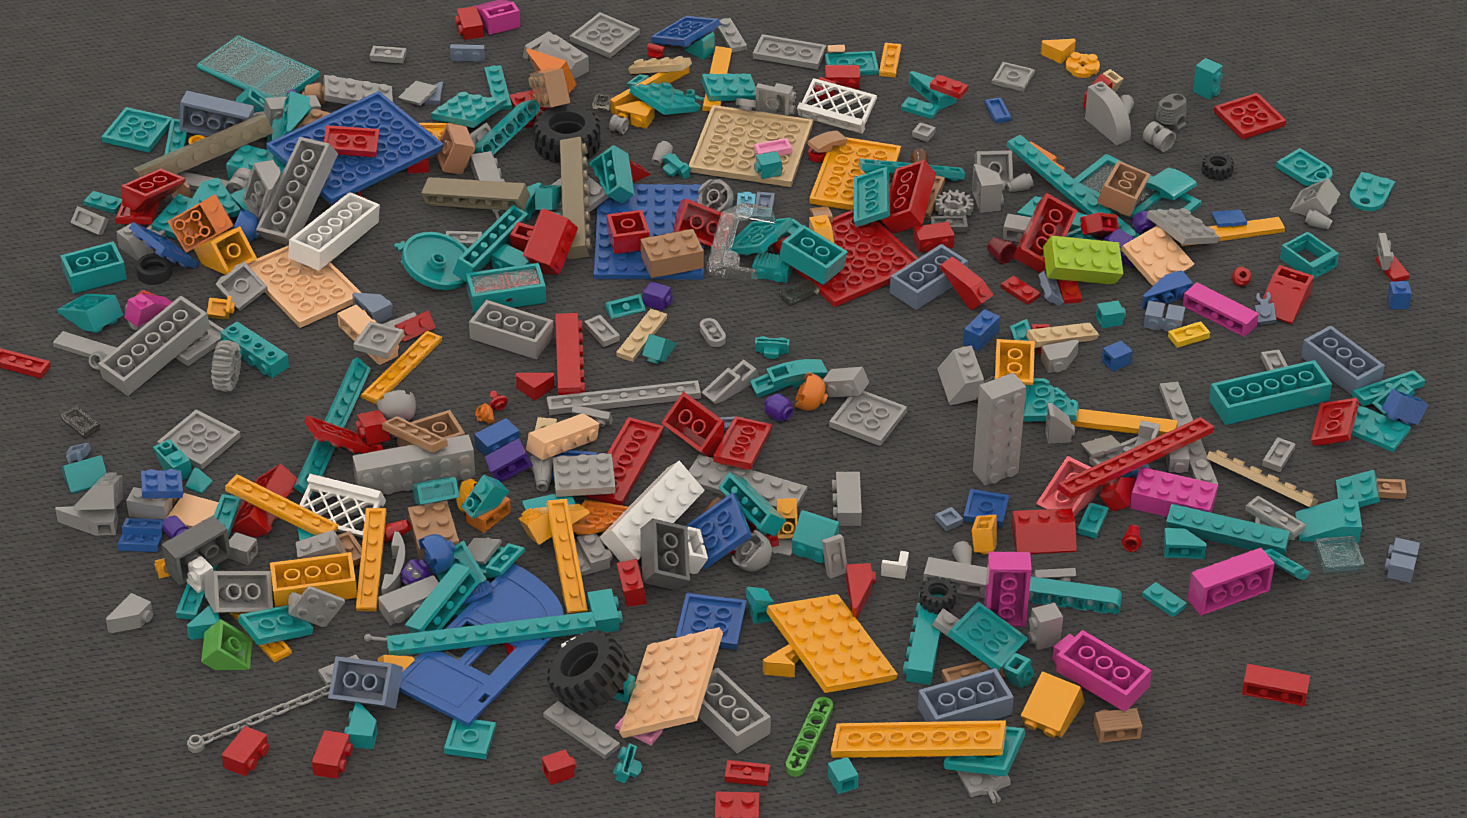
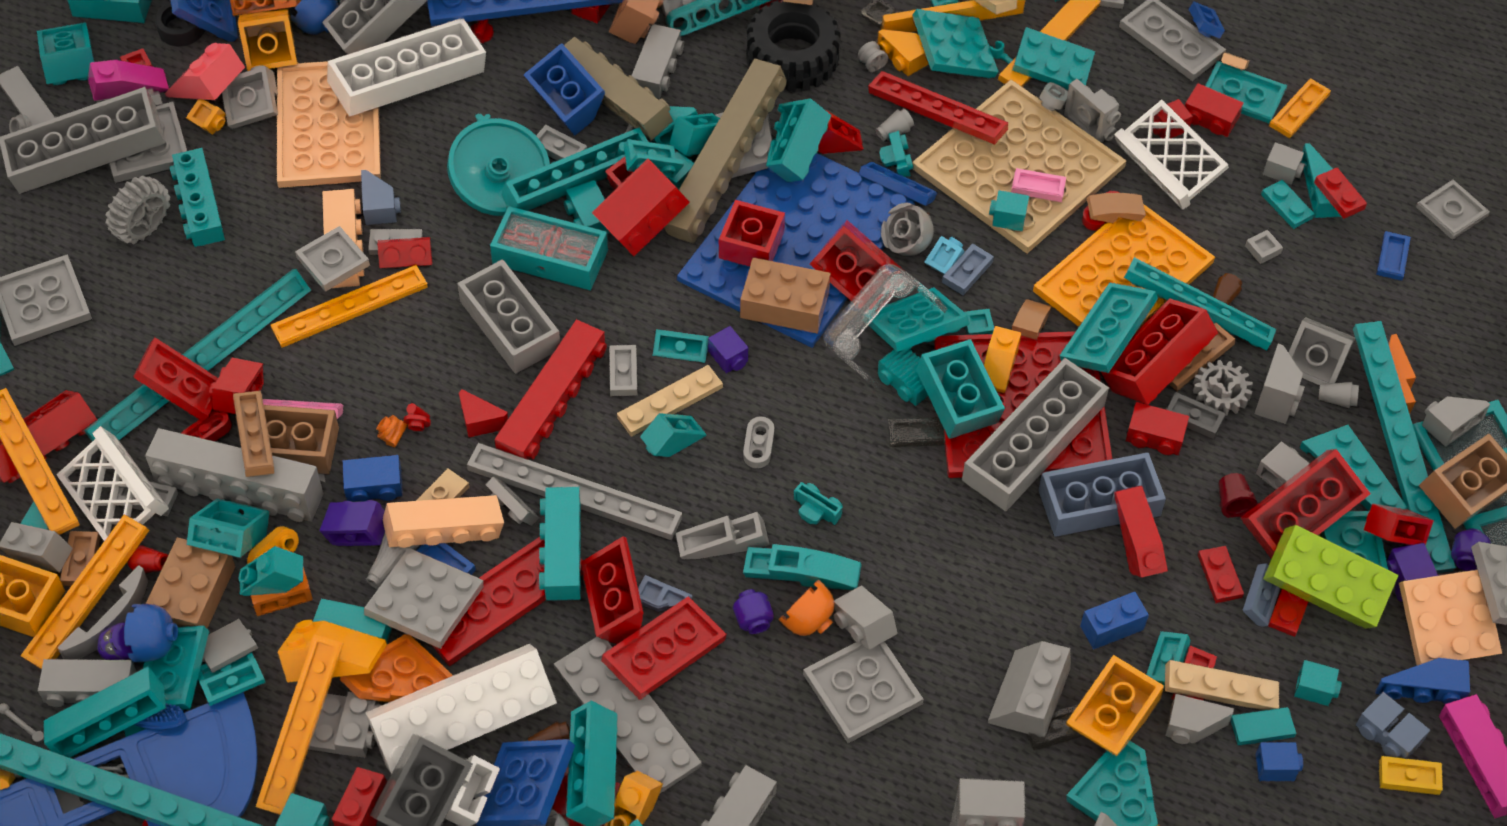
camera: 30 degrees right, 15 degrees up
(206, 280) = (208, 74): none -> coral slope
(397, 404) = (286, 372): light grey cylinder -> none
(446, 205) = (566, 88): none -> blue slope
(529, 215) = (661, 156): none -> teal bracket
(643, 417) = (562, 543): none -> teal brick
(681, 133) = (938, 107): none -> red plate
(684, 180) = (898, 183): none -> blue tile
(806, 36) = (1206, 20): none -> blue plate
(872, 260) = (1035, 434): none -> light grey brick
(903, 88) = (1284, 163): none -> light grey brick
(1090, 167) = (1453, 417): none -> light grey slope
(1094, 347) = (1263, 726): none -> teal tile

